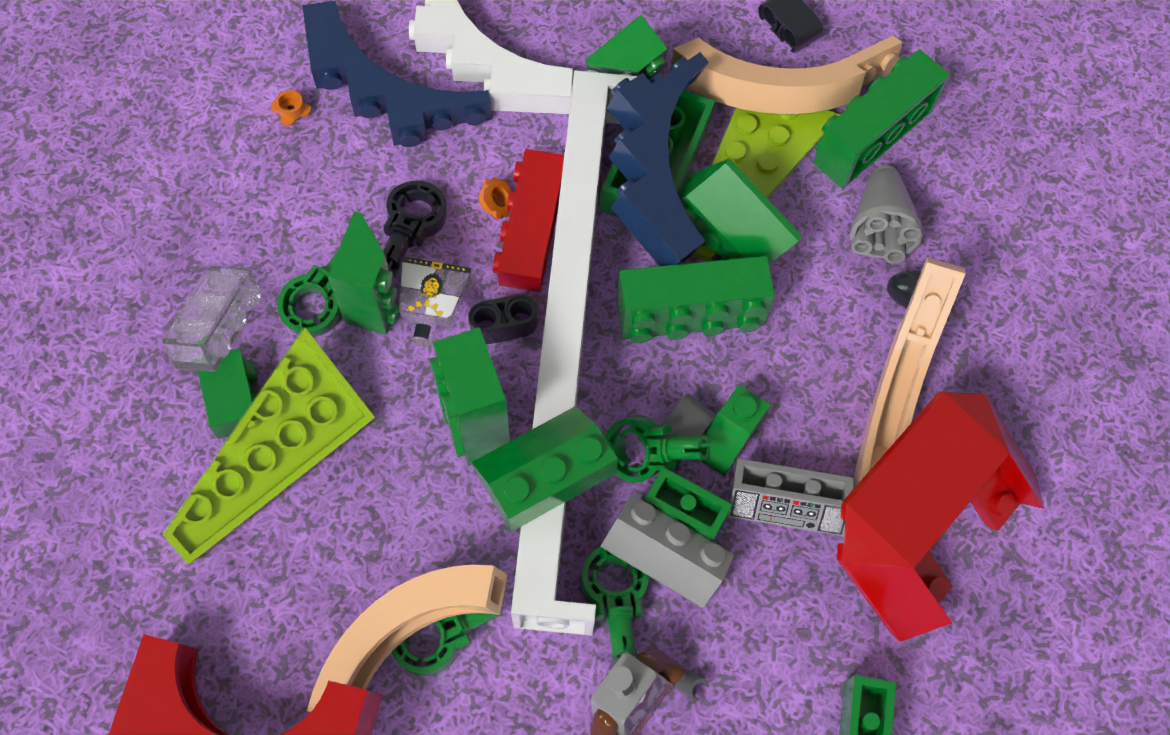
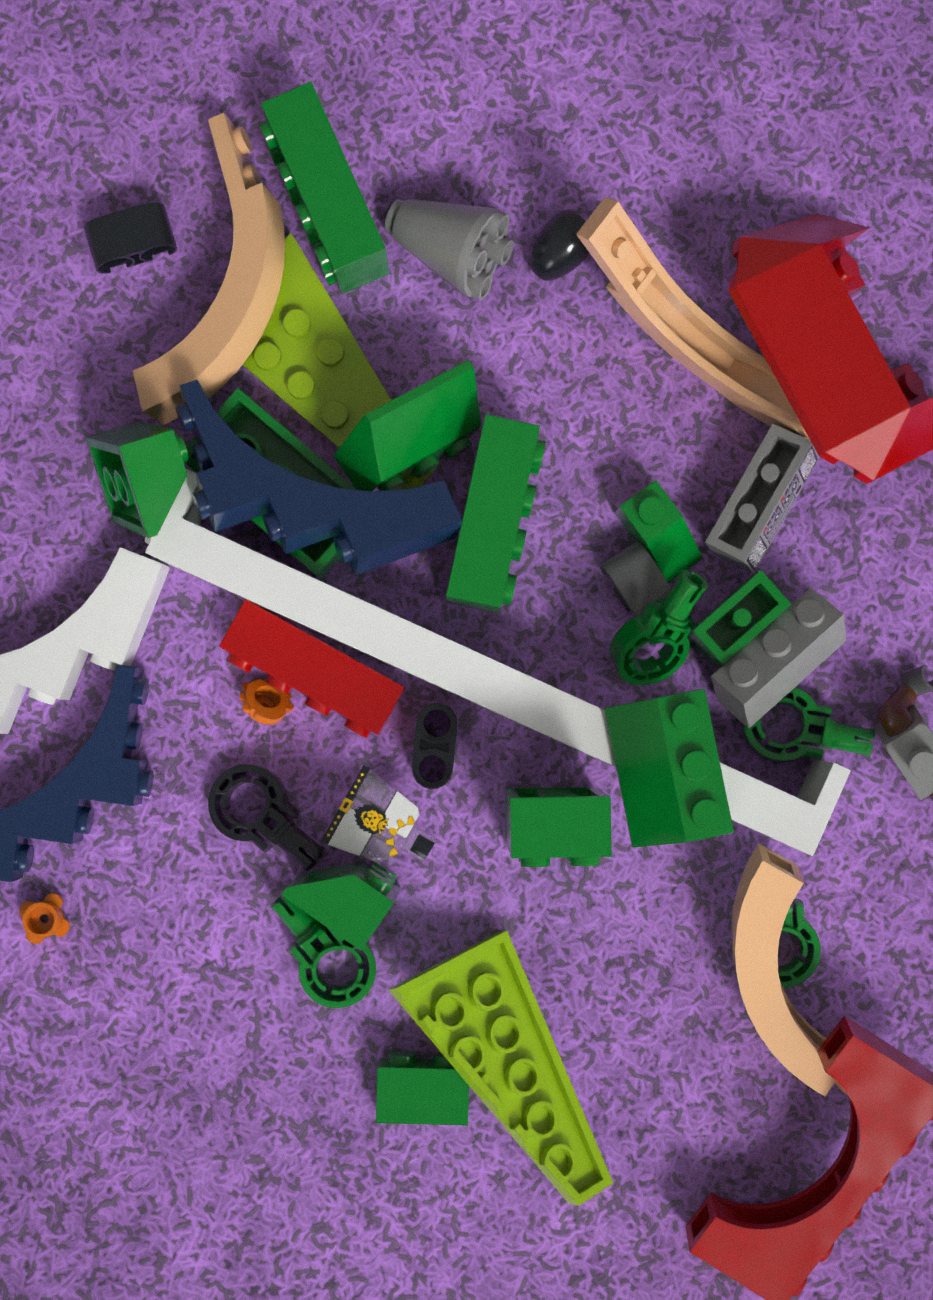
camera: 70 degrees left, 20 degrees up
(212, 319) = (330, 1089): clear brick -> none

